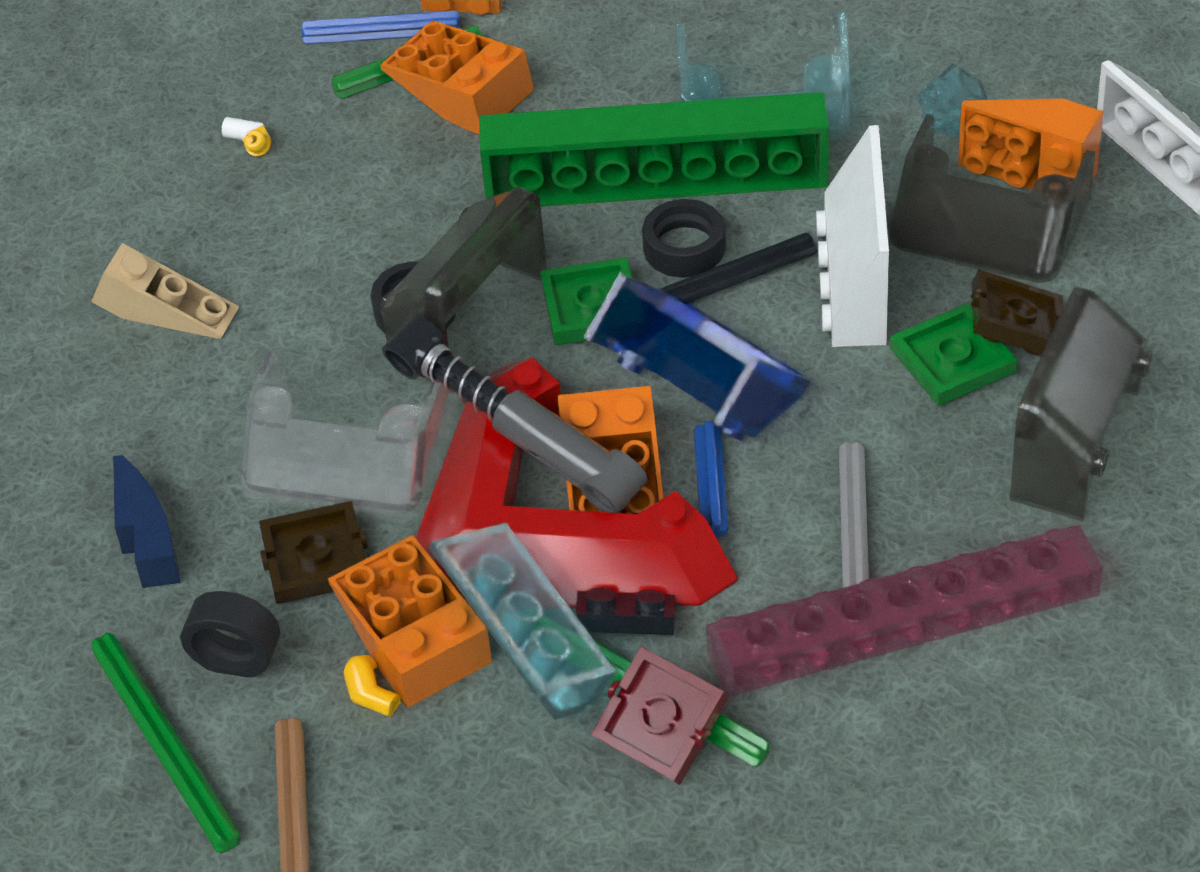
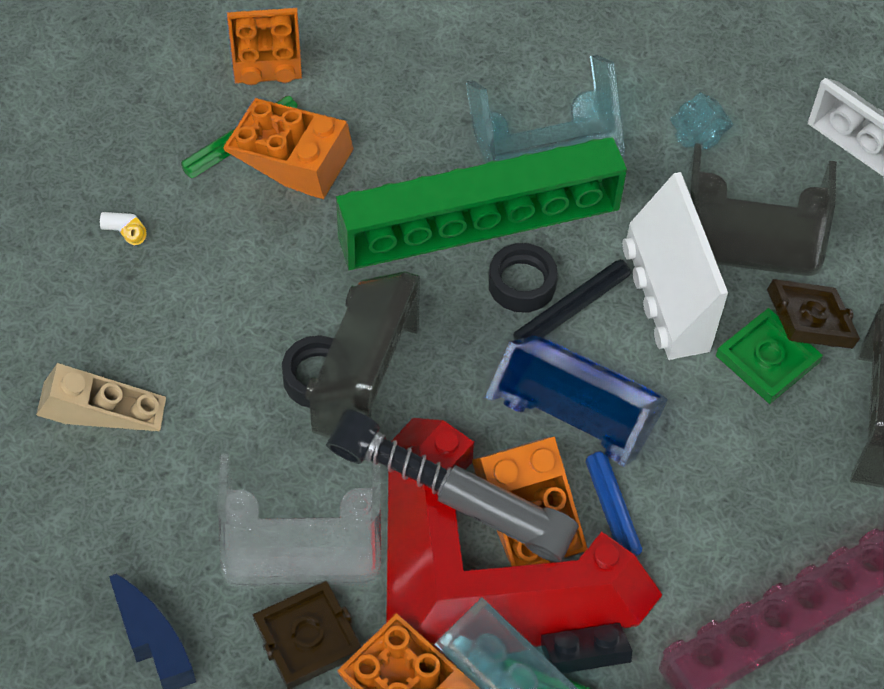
camera: 20 degrees left, 10 degrees up
(373, 27) = (204, 105): axle -> none
(576, 294) = (462, 348): green plate -> none
(853, 514) = (738, 524): light grey axle -> none
(1027, 138) = (777, 155): orange slope -> none

